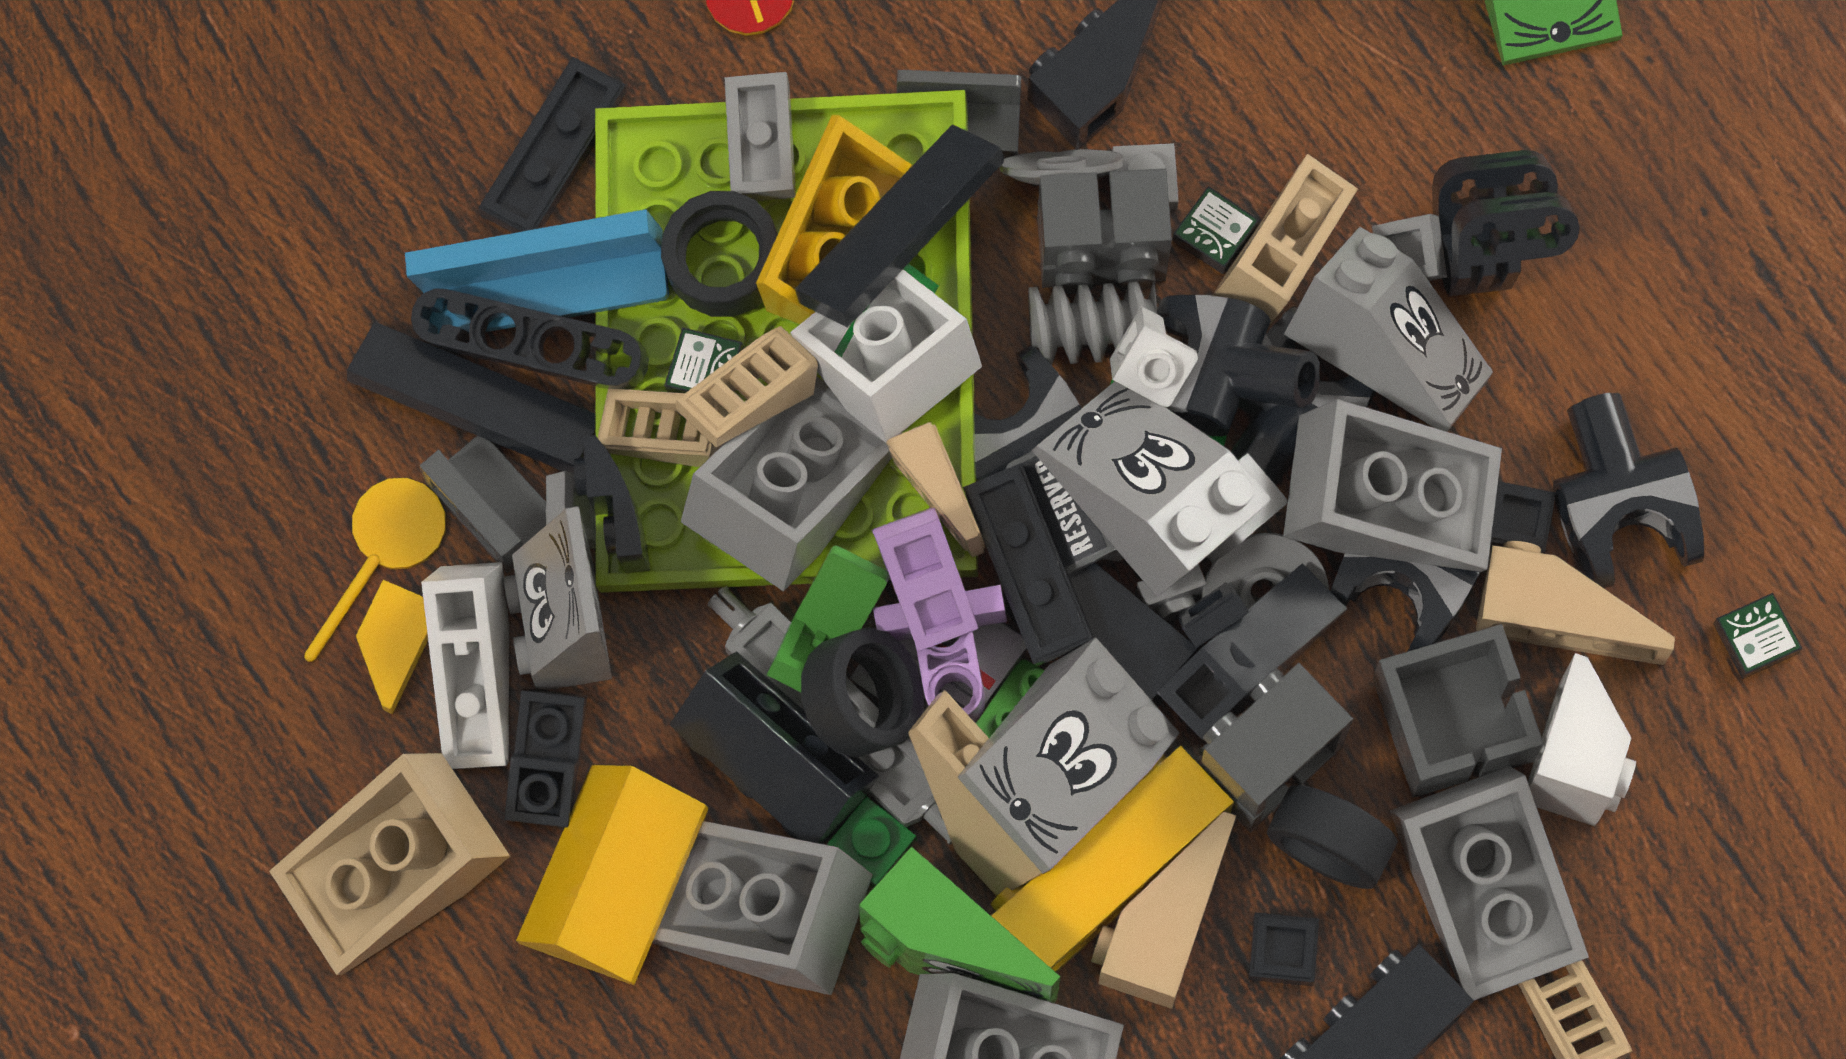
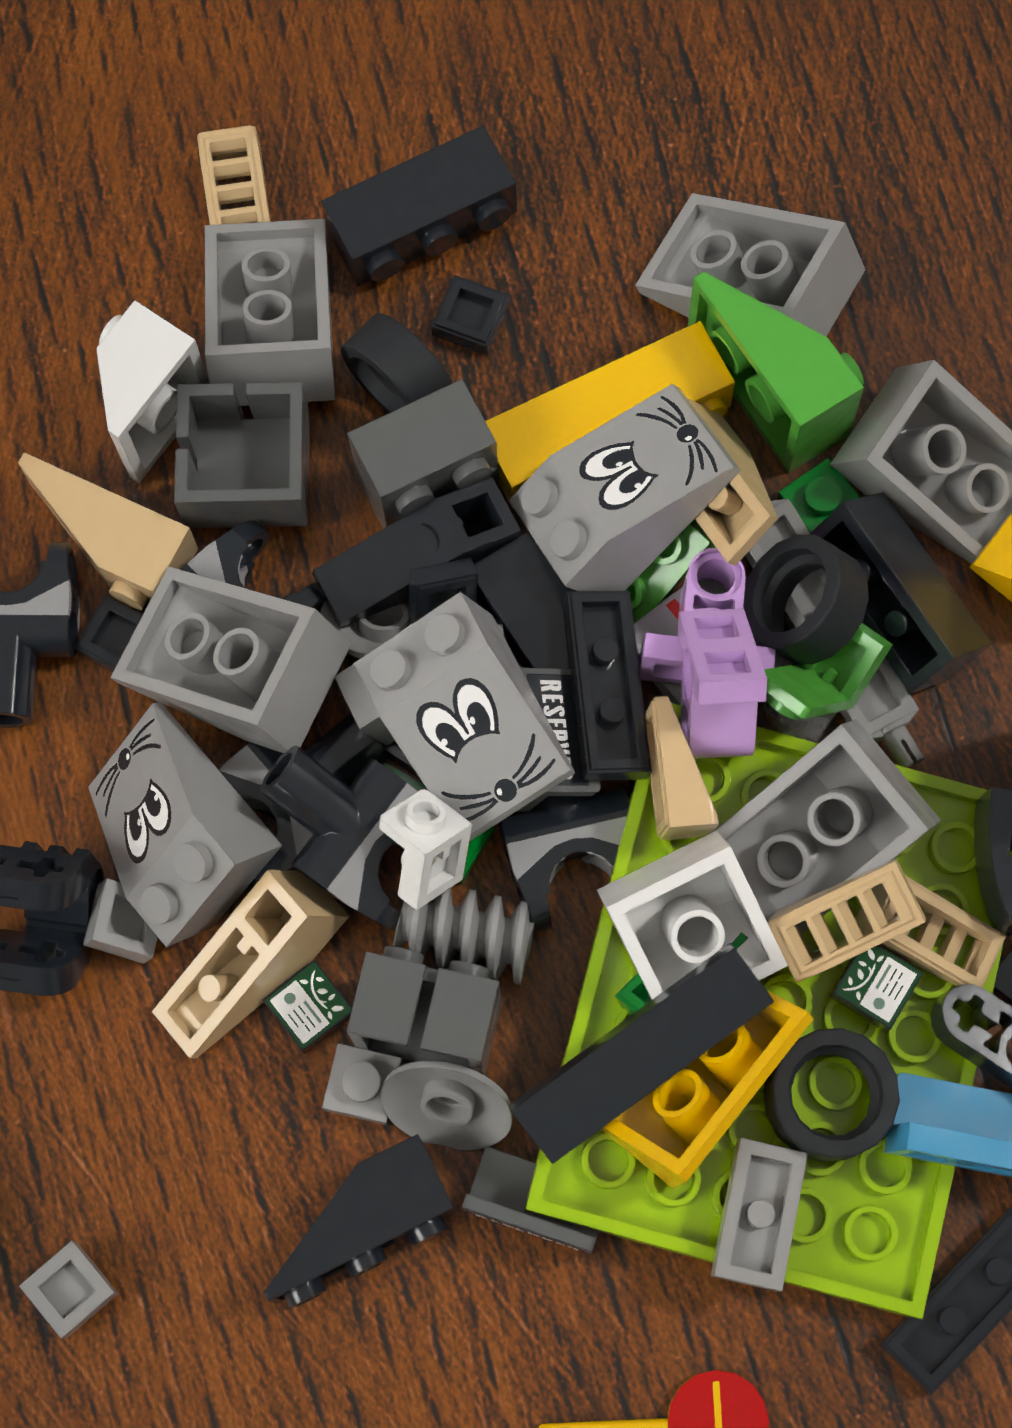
camera: 160 degrees left, 0 degrees up
(1161, 923) = (584, 334): tan slope -> none

